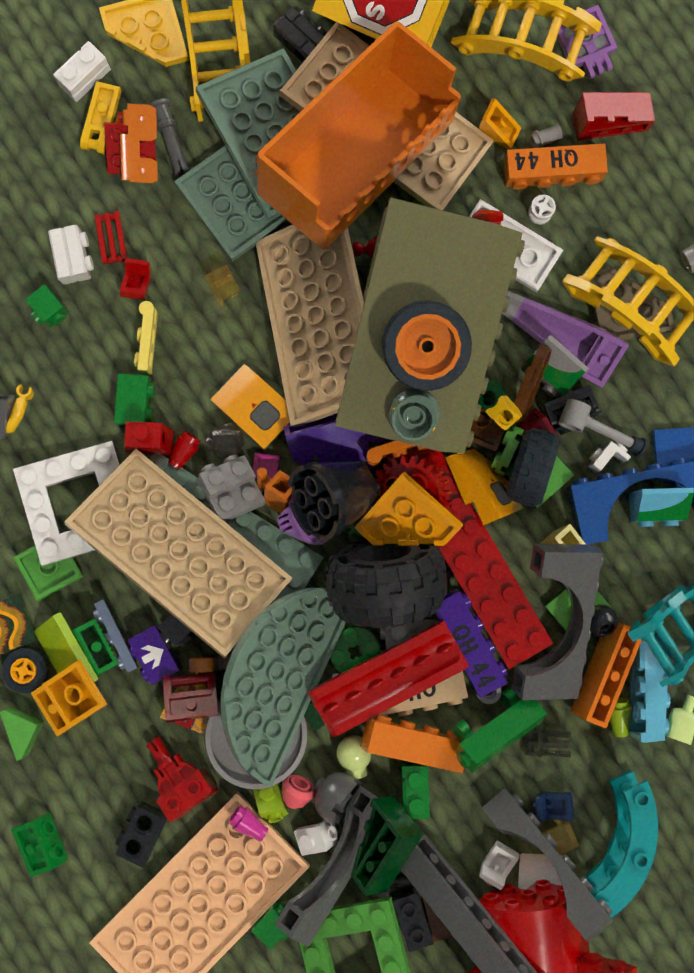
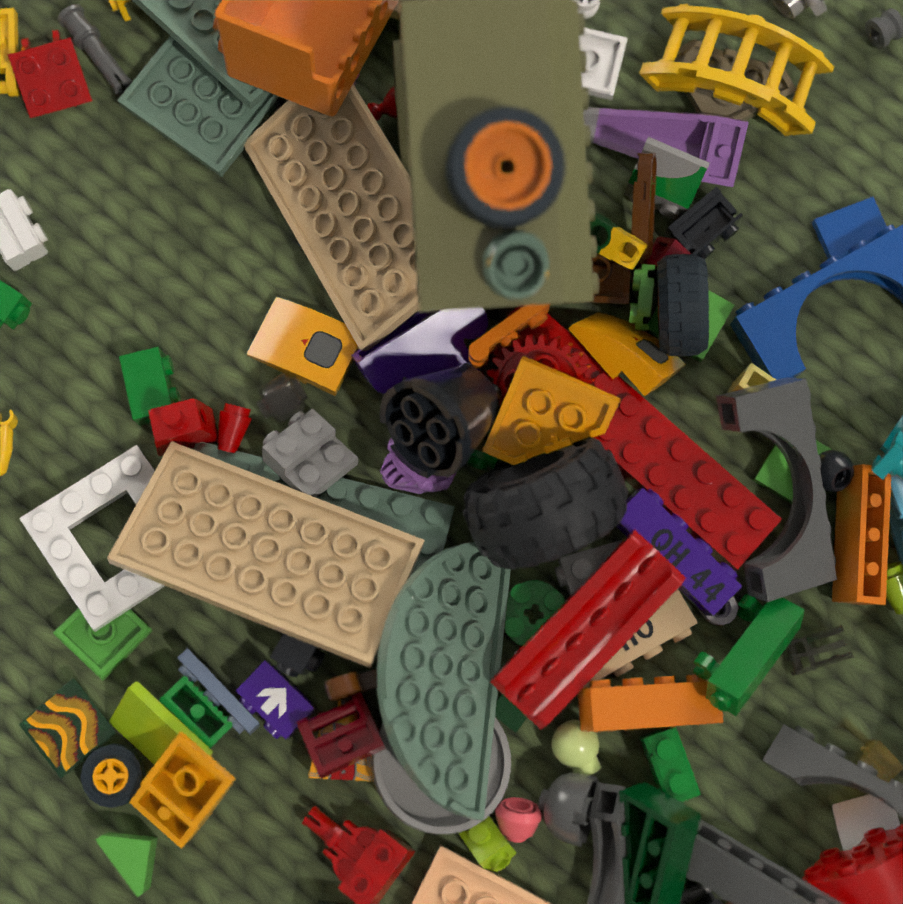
camera: 15 degrees left, 5 degrees down
(107, 218) = (47, 172): red tile -> none
(136, 279) = (105, 234): red bracket -> none
(141, 127) = (58, 44): orange piece -> none
(146, 336) = (141, 302): light yellow plate -> none
(222, 284) = (217, 207): clear yellow panel -> none
(247, 823) = (468, 880): dark pink cone -> none
(266, 461) = (344, 416): dark pink tile -> none
(275, 489) = (367, 438): orange brick -> none
(316, 838) = (562, 871): white bracket -> none
(498, 865) = (809, 828): white bracket -> none
(554, 806) = (854, 728): dark blue bracket -> none
(576, 417) = (714, 229): light grey piece -> none
(601, 456) = (760, 271): white bracket -> none
(660, 505) = (854, 306): medium azure slope -> none

